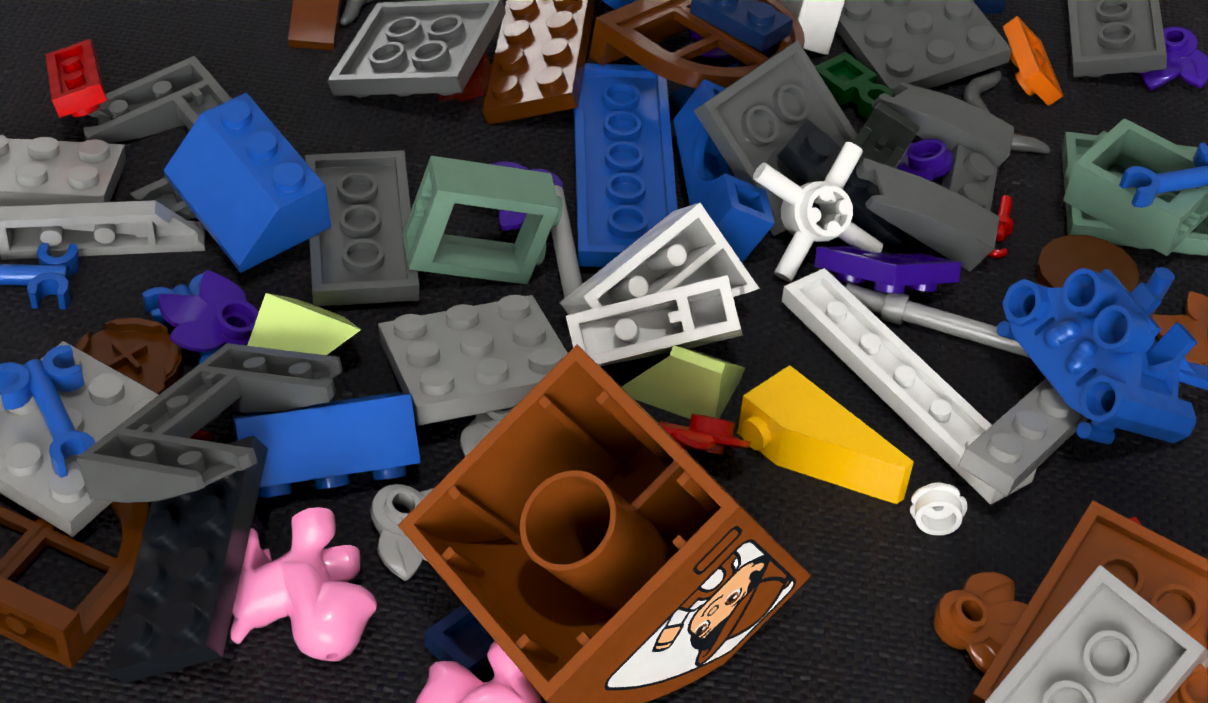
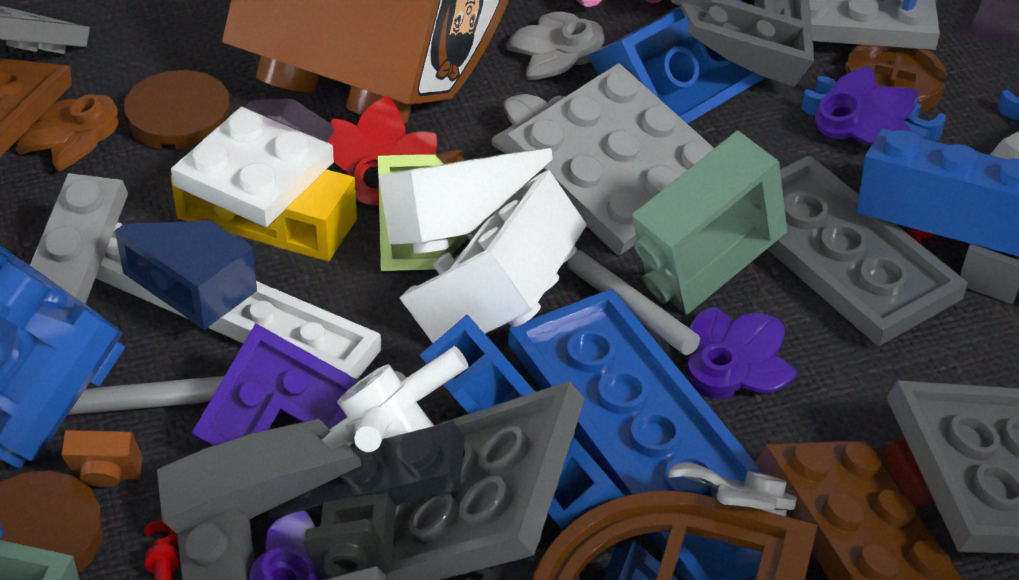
camera: 155 degrees right, 0 degrees up
(299, 326) = (783, 125): yellowish green slope -> none
(625, 68) = (757, 491): none -> light grey plate
(779, 477) = (293, 115): none -> clear purple tile
(835, 426) = (253, 166): none -> white plate
(866, 609) = (176, 108): none -> reddish brown tile
(928, 359) = (189, 266): none -> dark blue slope
(938, 508) = (144, 191): white plate -> none
(1029, 267) = (102, 456): none -> dark orange plate

